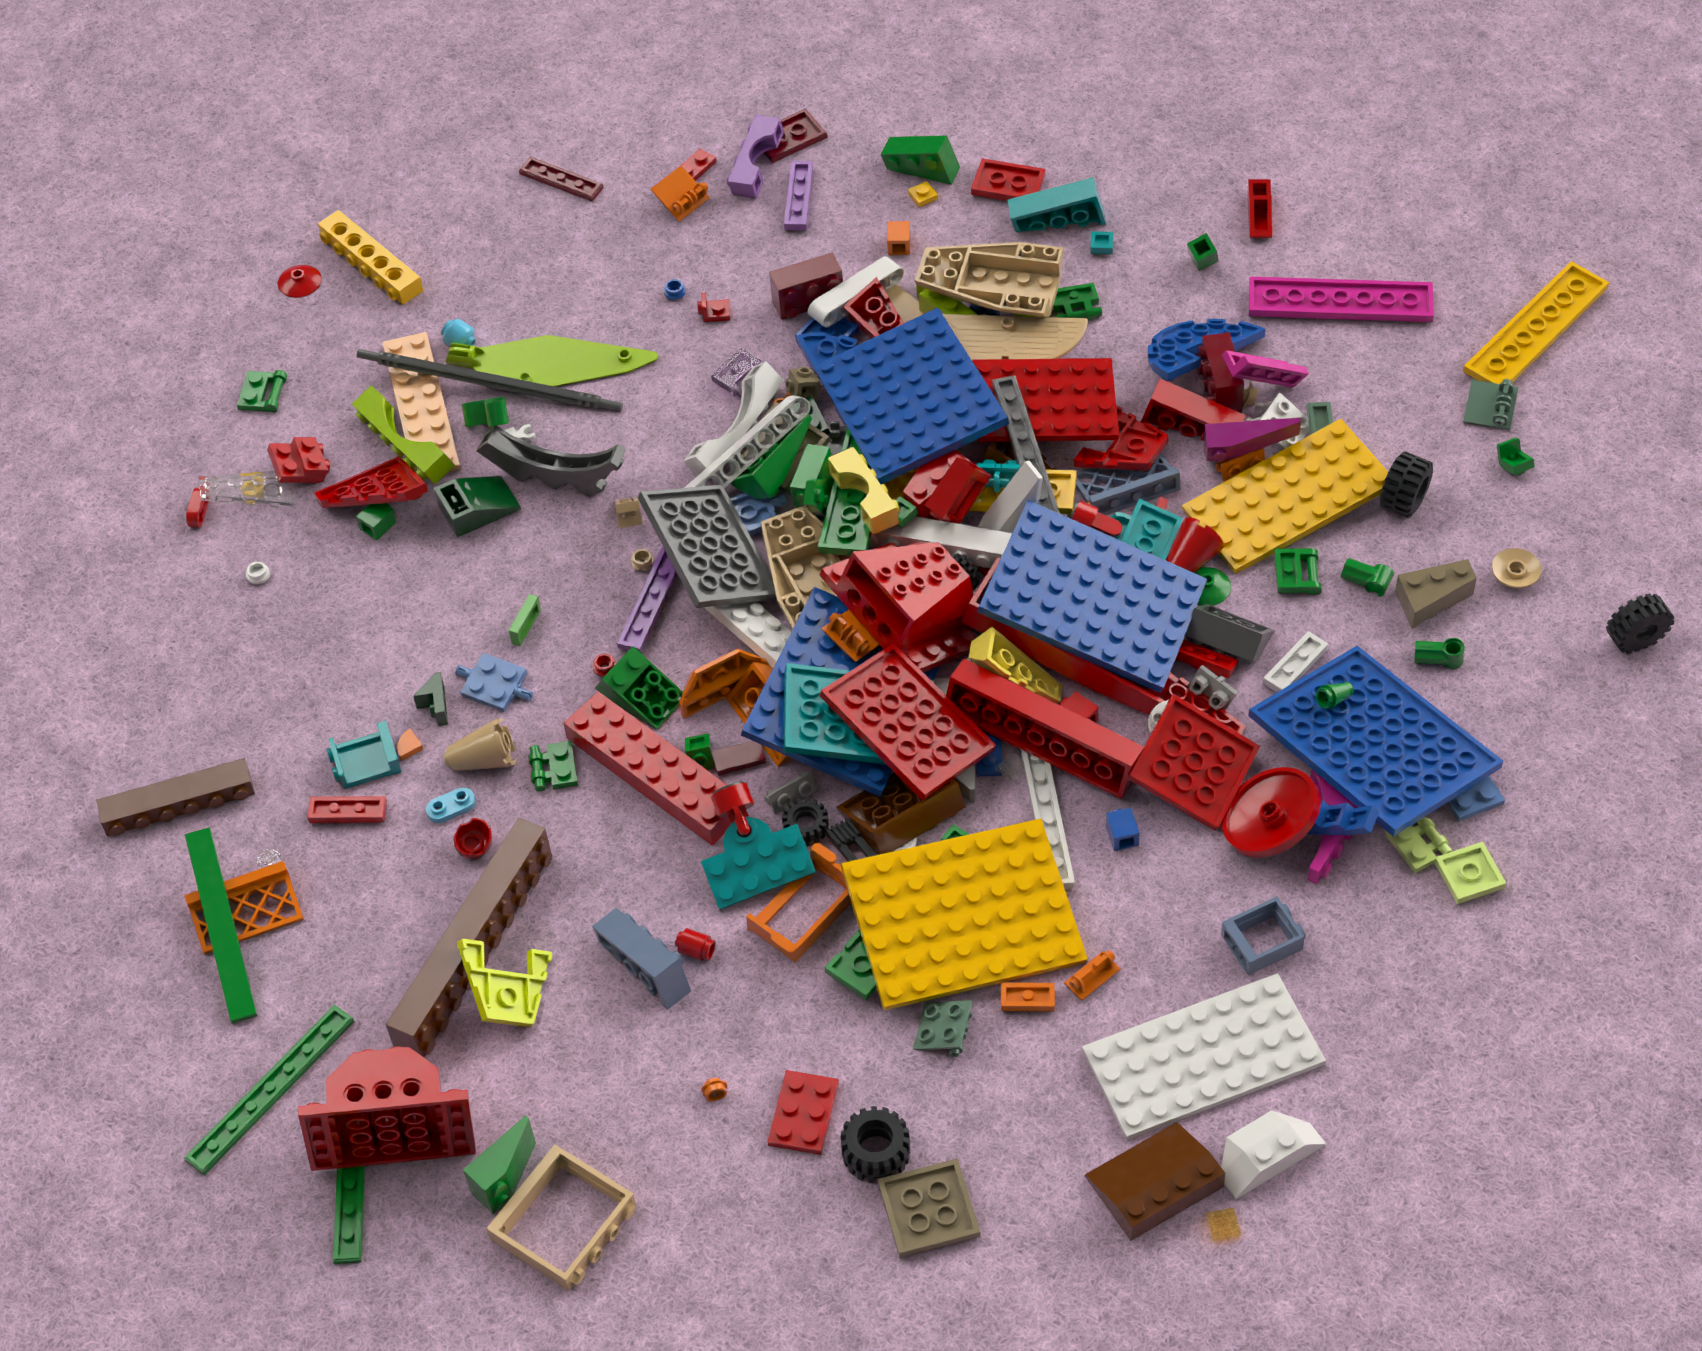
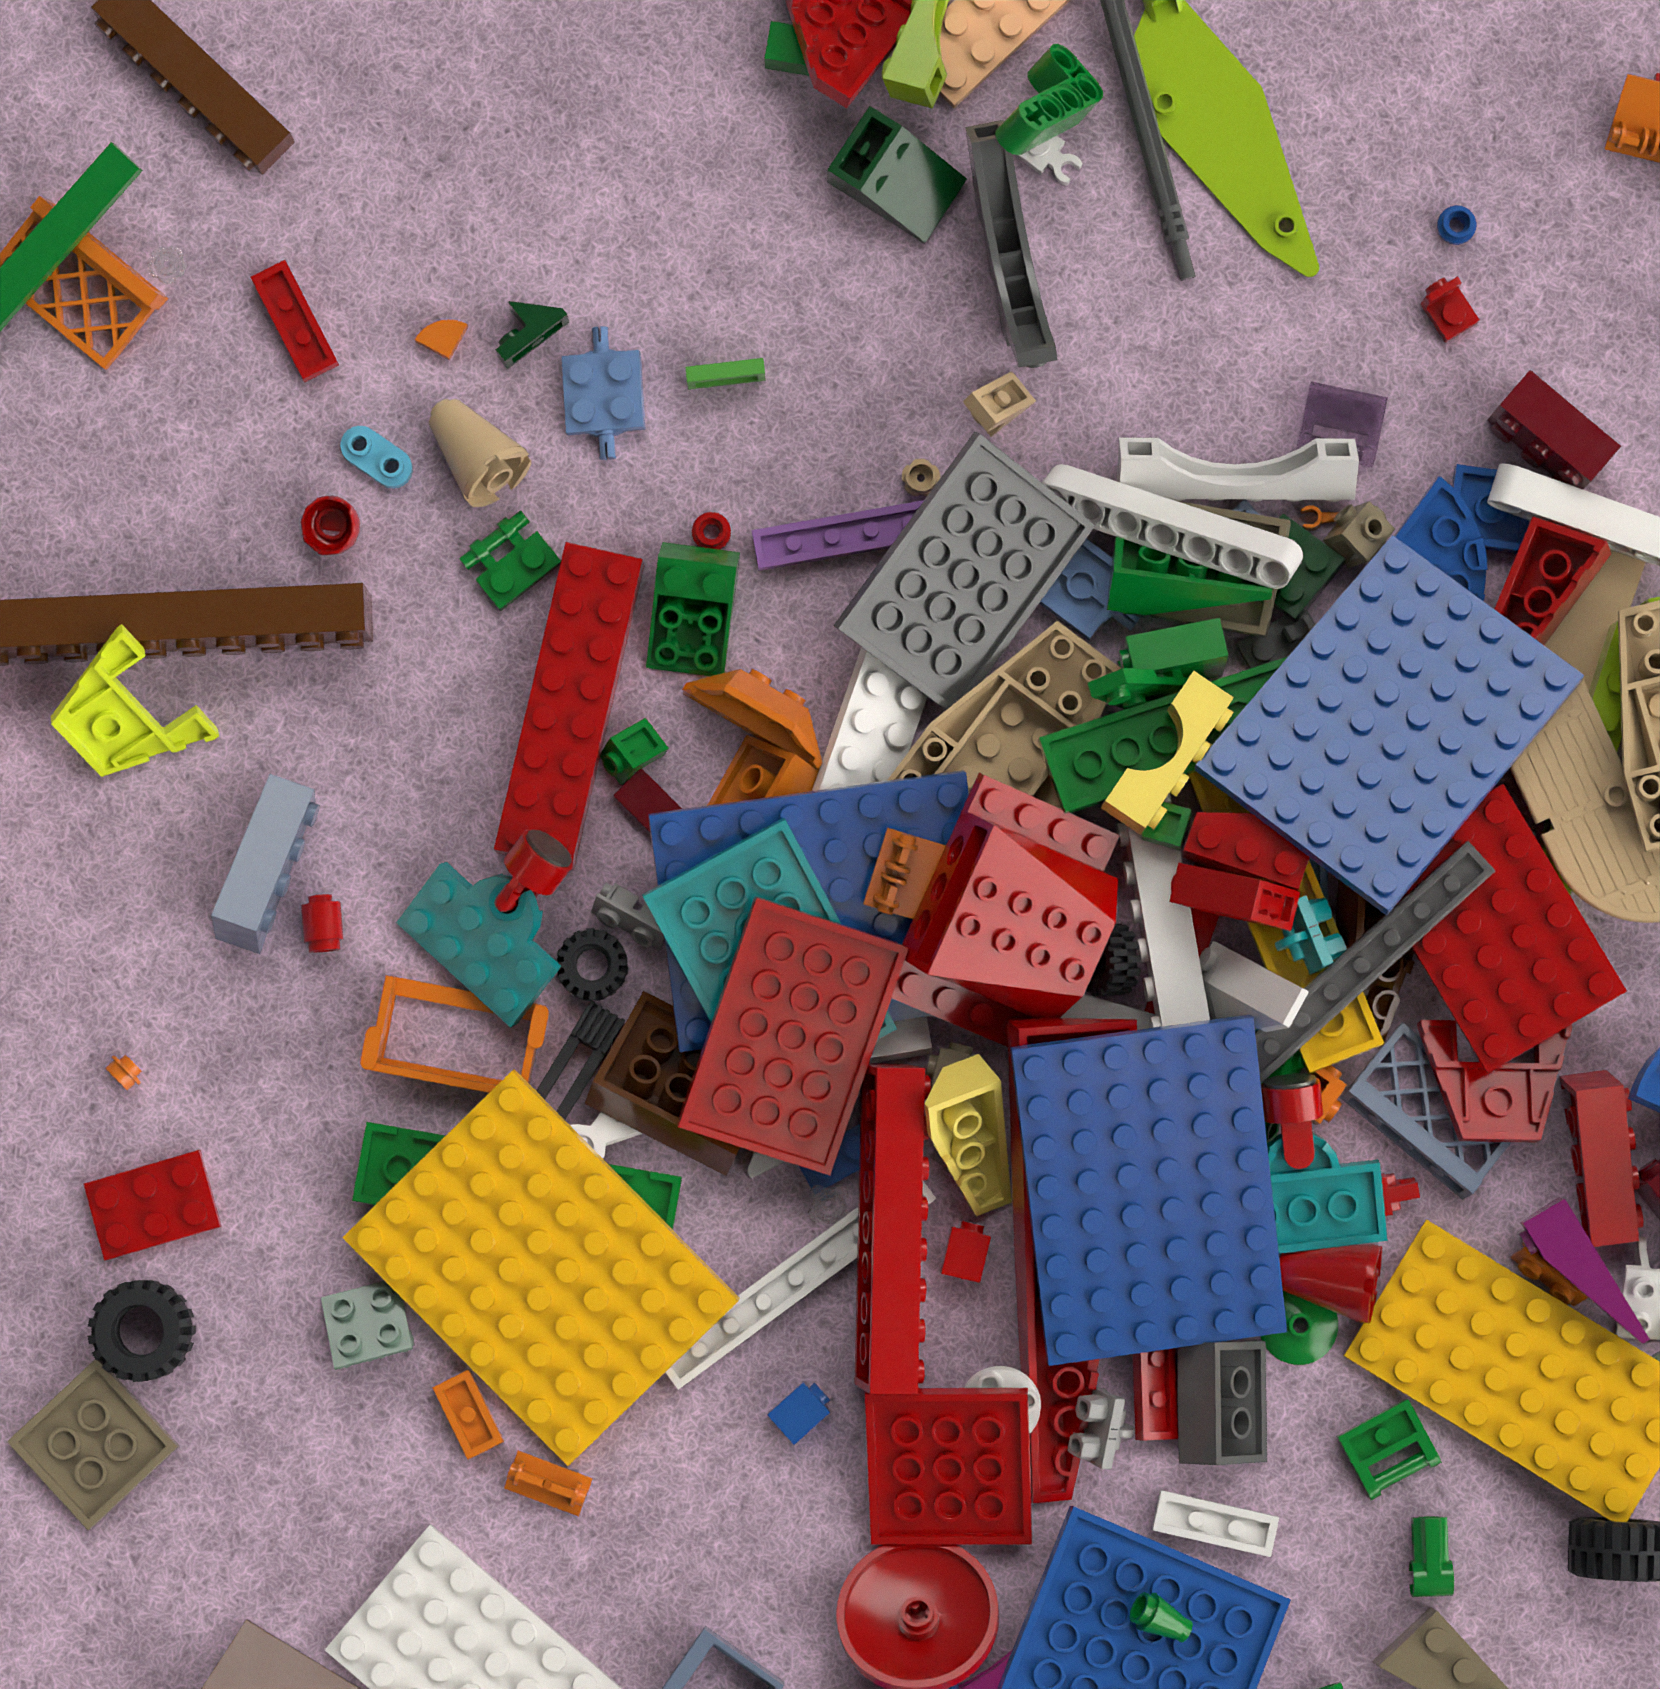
camera: 55 degrees right, 30 degrees up
(364, 758) = (387, 289): teal panel -> none

